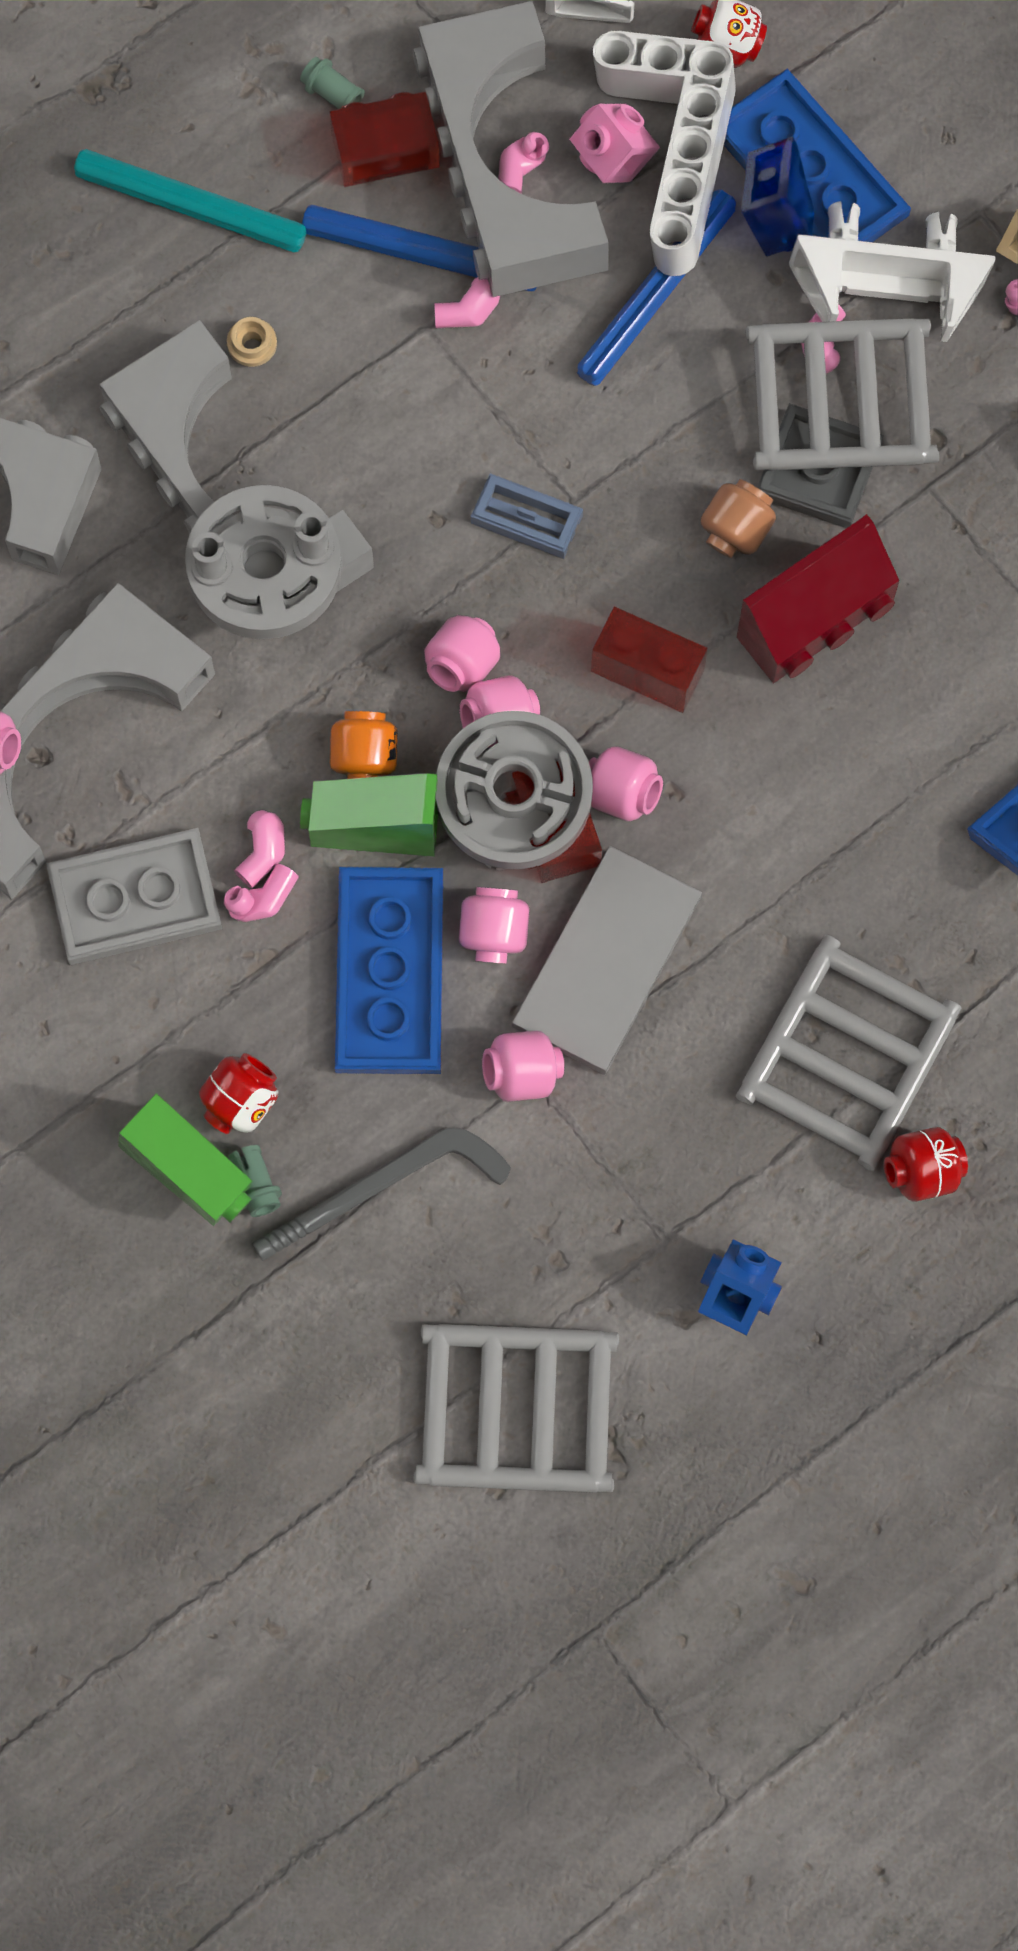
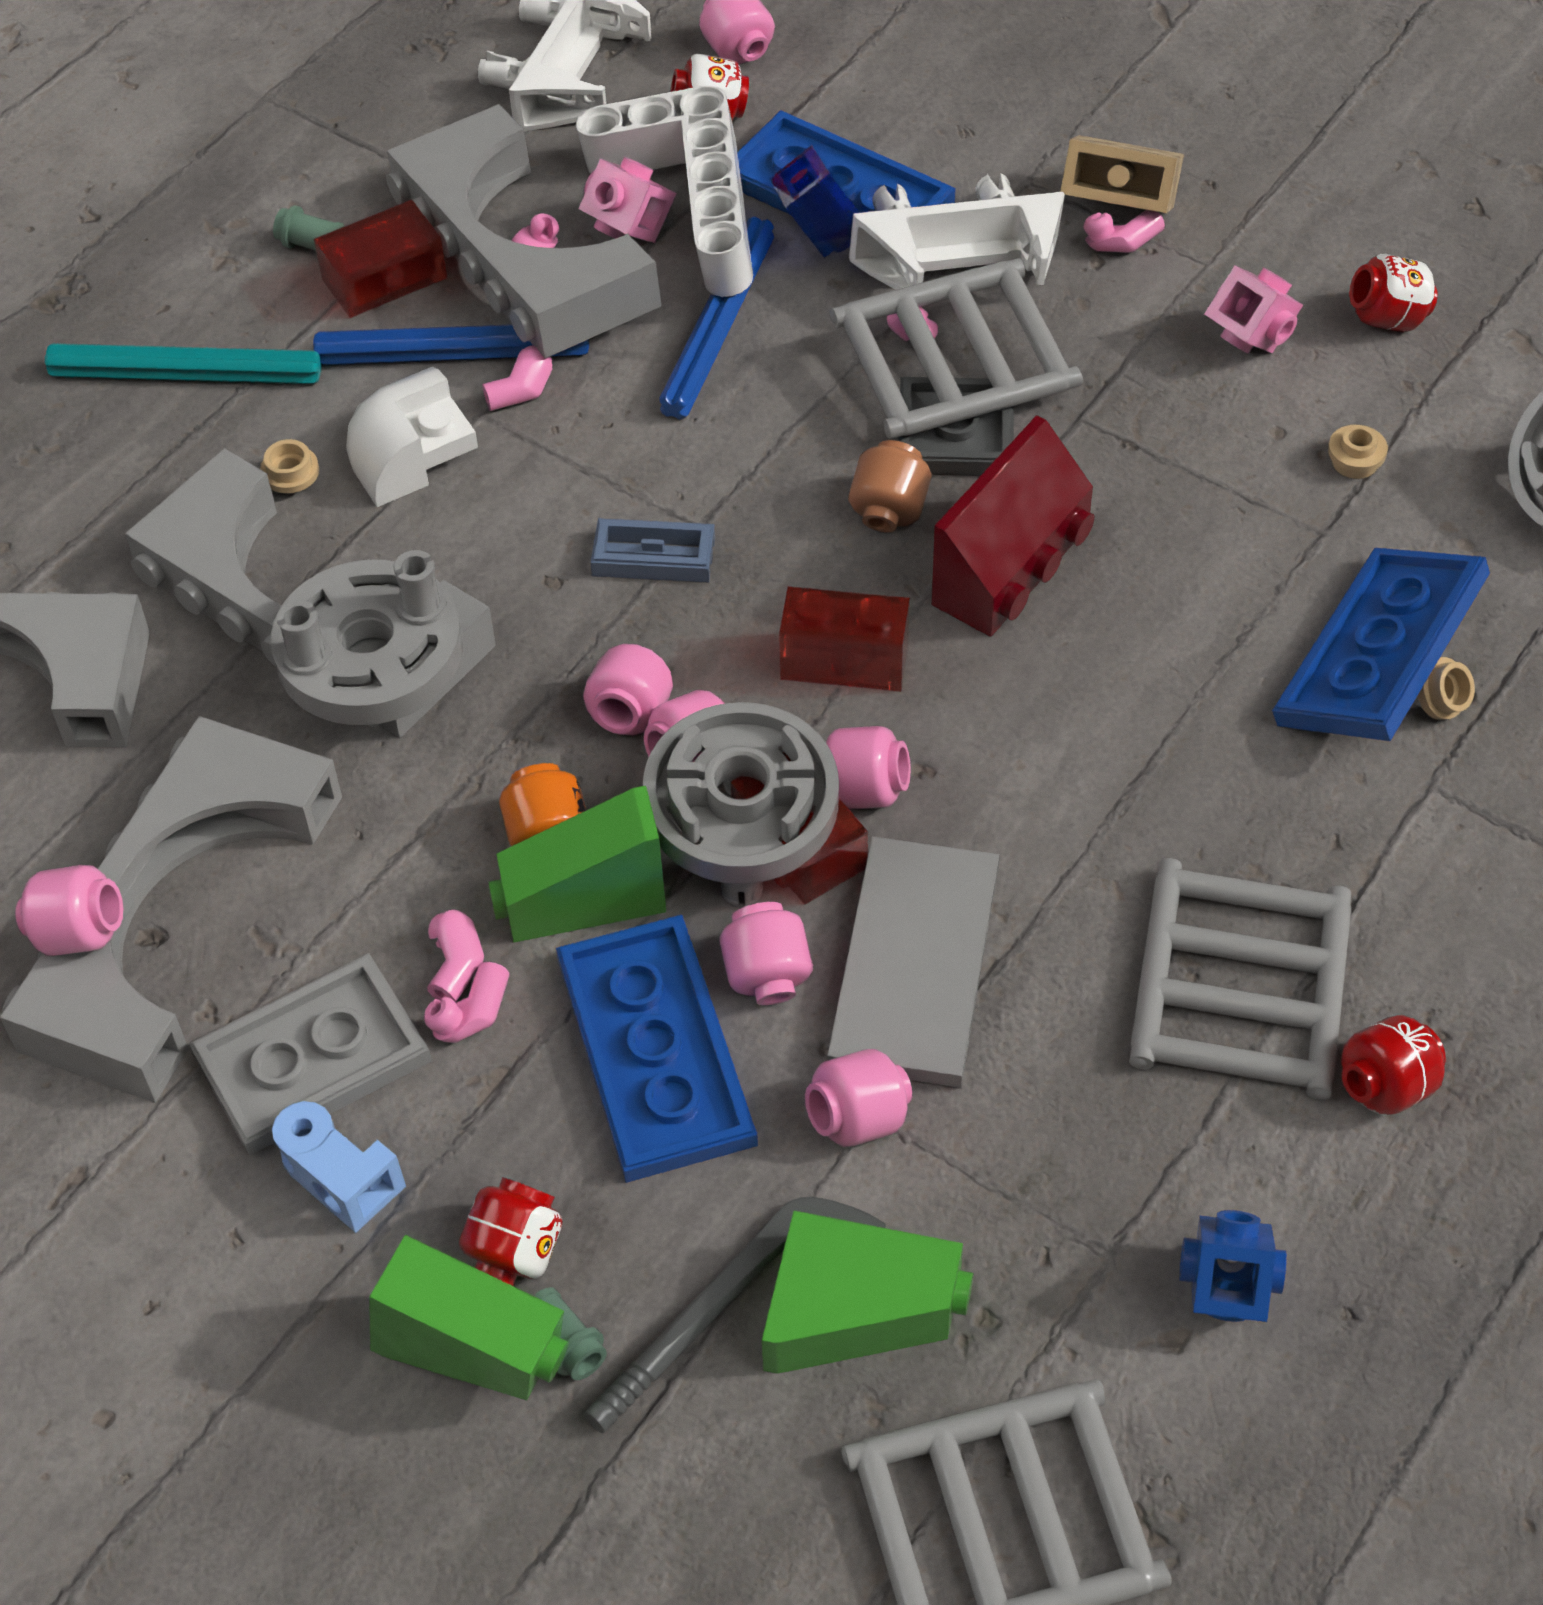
camera: 15 degrees left, 20 degrees down
(118, 988) = (333, 1168): none -> light blue leg
(355, 339) = (404, 433): none -> white brick
(471, 1217) = (859, 1292): none -> bright green slope

